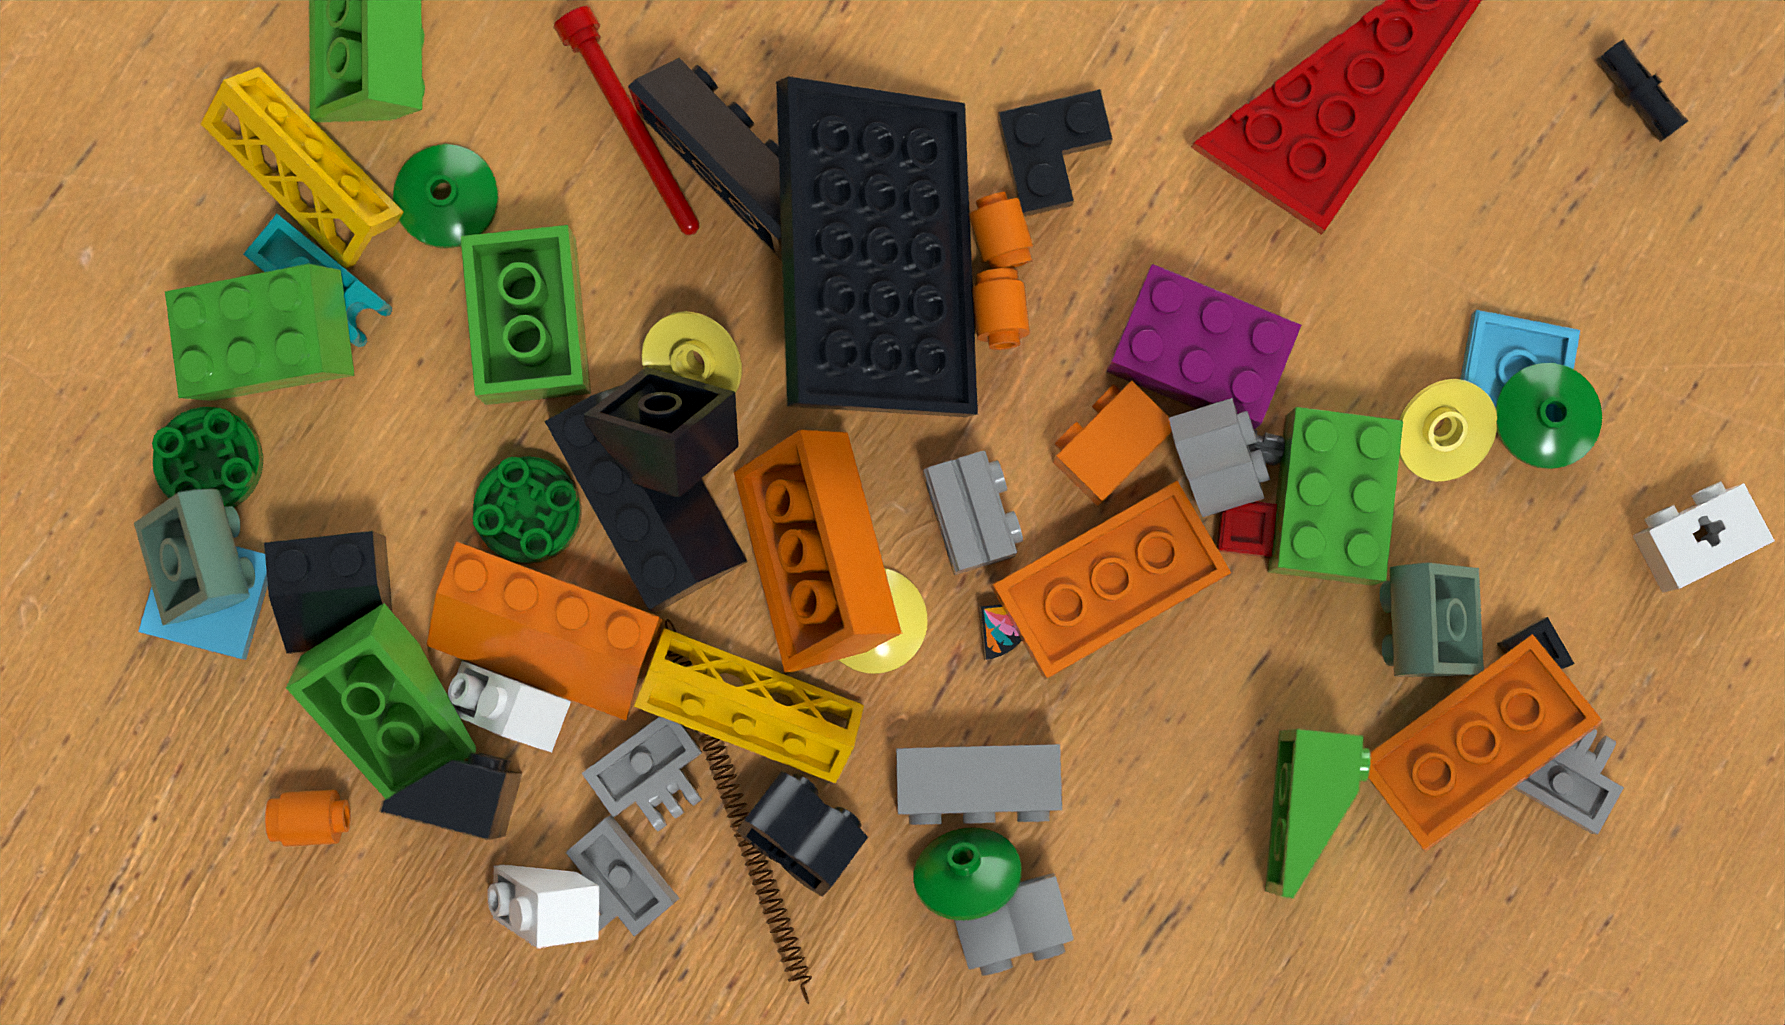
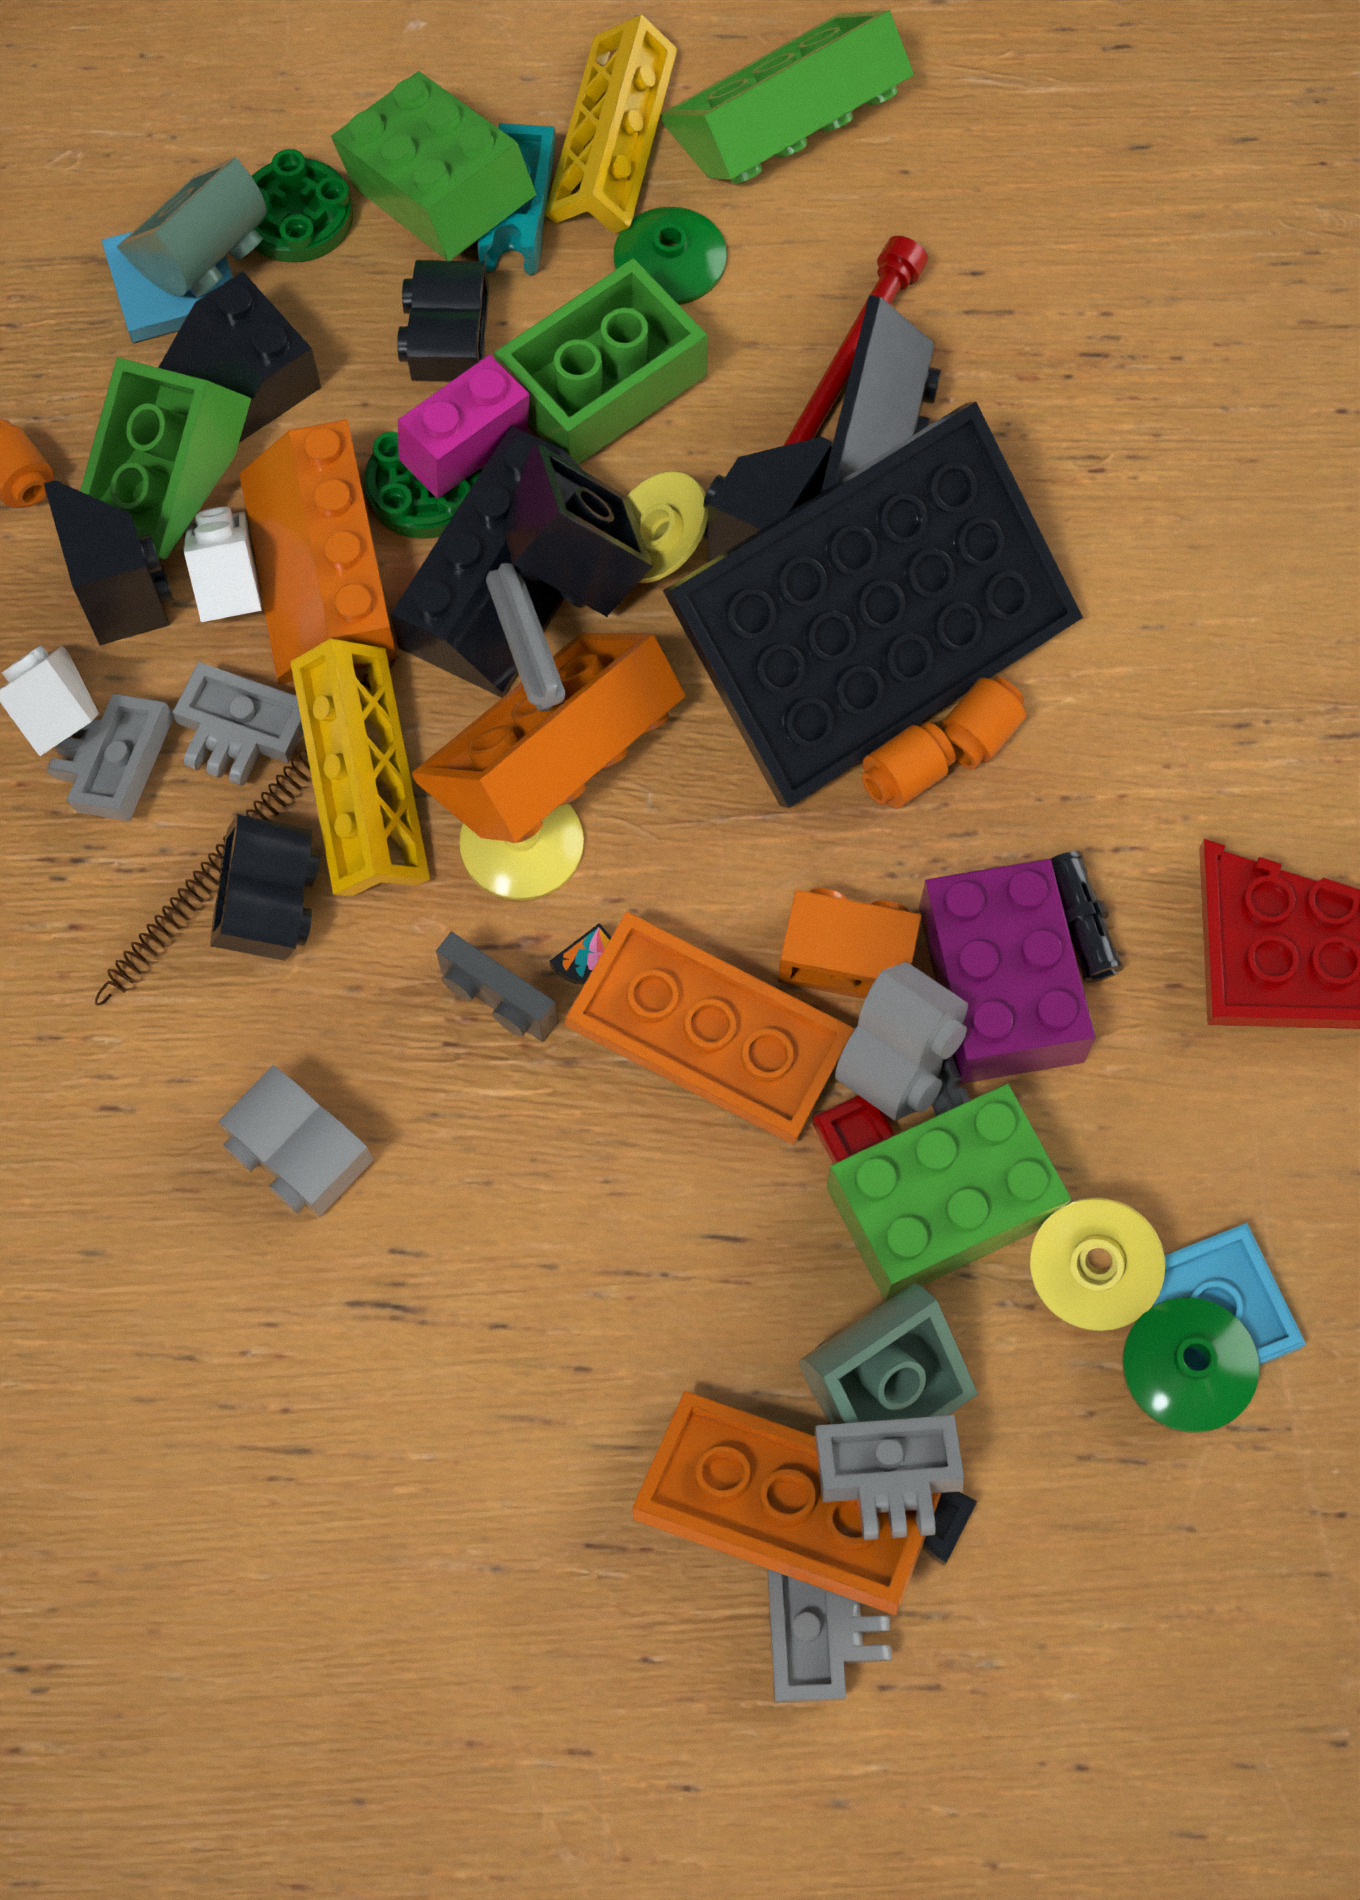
camera: 60 degrees right, 15 degrees down
(399, 407) = (445, 319): none -> black brick
(521, 457) = (461, 425): none -> dark pink brick
(741, 279) = (762, 490): none -> black slope
(742, 525) = (525, 637): none -> light grey axle
(971, 511) = (686, 857): light grey brick -> none
(972, 888) = (317, 1065): green dish -> none
(979, 782) = (419, 1024): light grey brick -> none
(1008, 704) = (514, 1001): none -> dark grey plate
(1038, 139) = (1101, 706): black plate -> none
(1194, 264) = (1085, 919): none -> black pin
(1312, 791) = (609, 1352): bright green slope -> none
(1511, 666) = (890, 1468): none -> light grey hinge
(1732, 529) = (1202, 1649): white brick -> none

